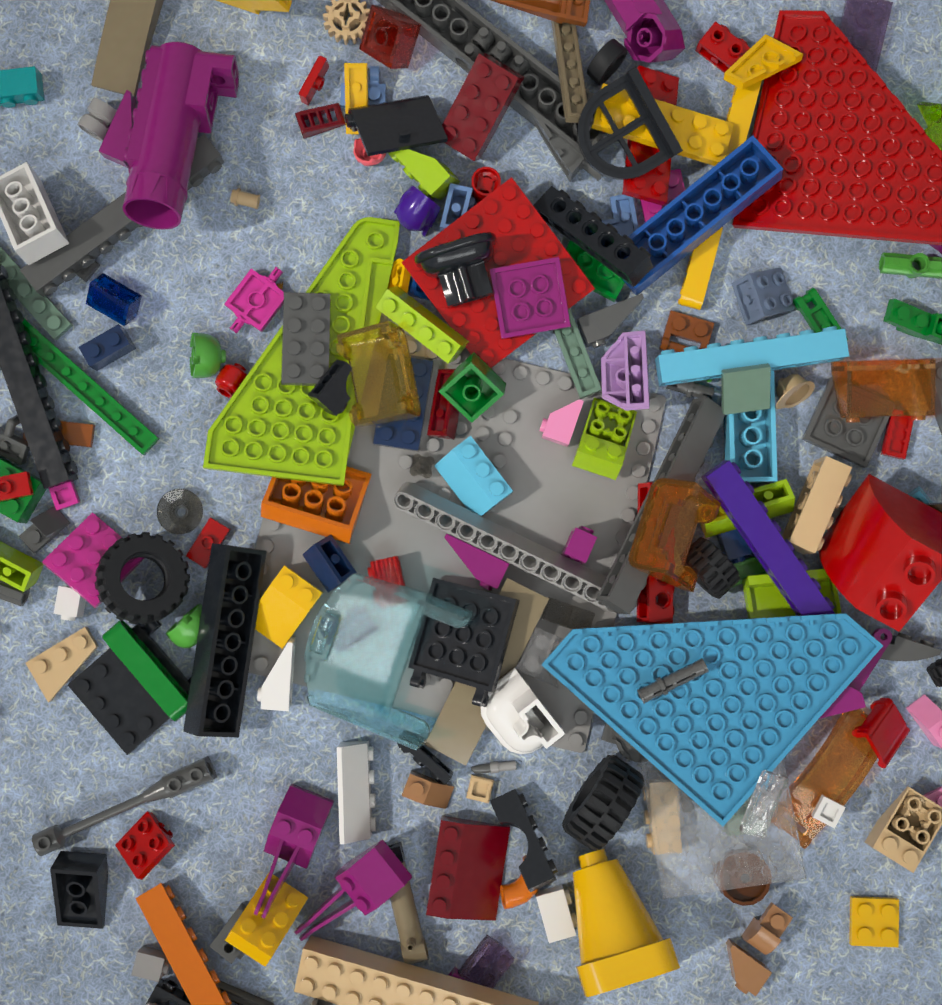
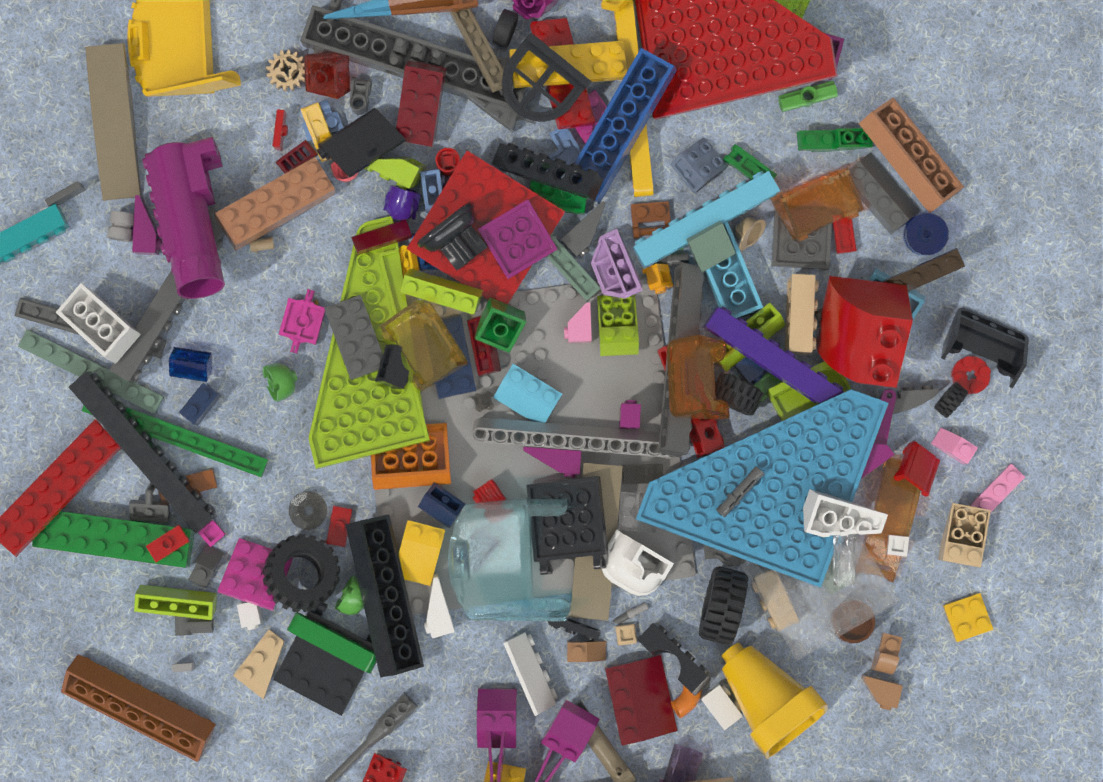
camera: 25 degrees left, 0 degrees up
(52, 61) = (65, 194): none -> dark grey tile
(230, 379) = (307, 392): red head -> none
(275, 157) = (275, 203): none -> nougat brick
(379, 240) = (381, 237): none -> dark red slope
(419, 73) = (360, 91): none -> dark grey piece
(671, 403) = (658, 278): none -> light orange brick
(769, 751) = (833, 516): none -> white wedge

